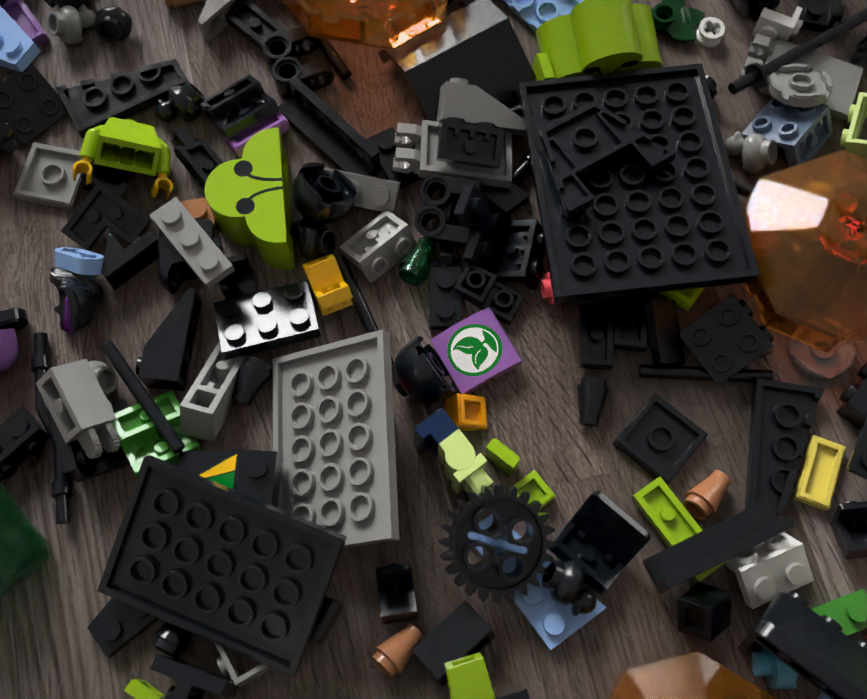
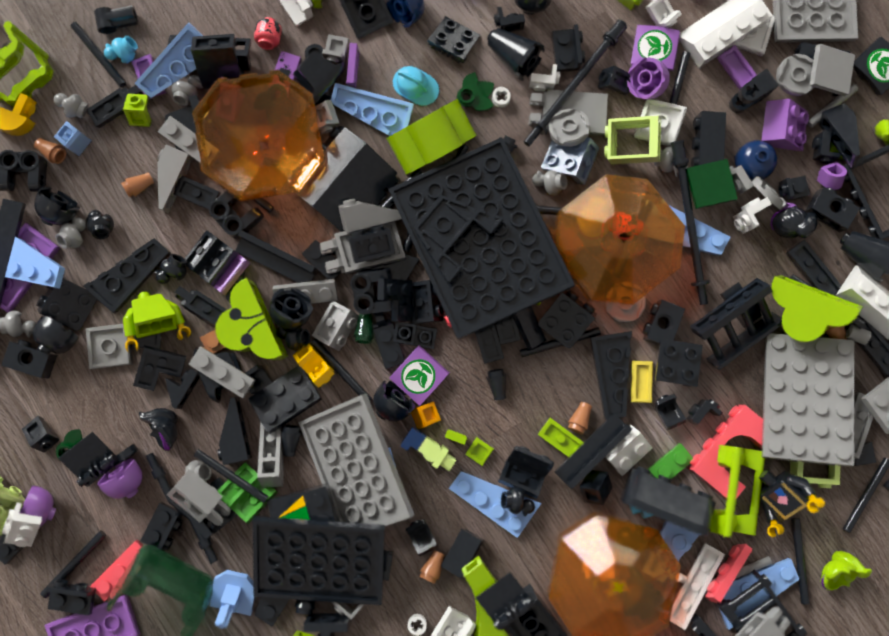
camera: 20 degrees left, 15 degrees up
(66, 582) = (232, 594): none -> light blue piece
(79, 261) = (153, 401): light blue beam -> none
(488, 573) = (469, 474): black gear -> none
(542, 67) = (400, 167): lime tile -> none
(660, 439) = (544, 392): black tile -> none

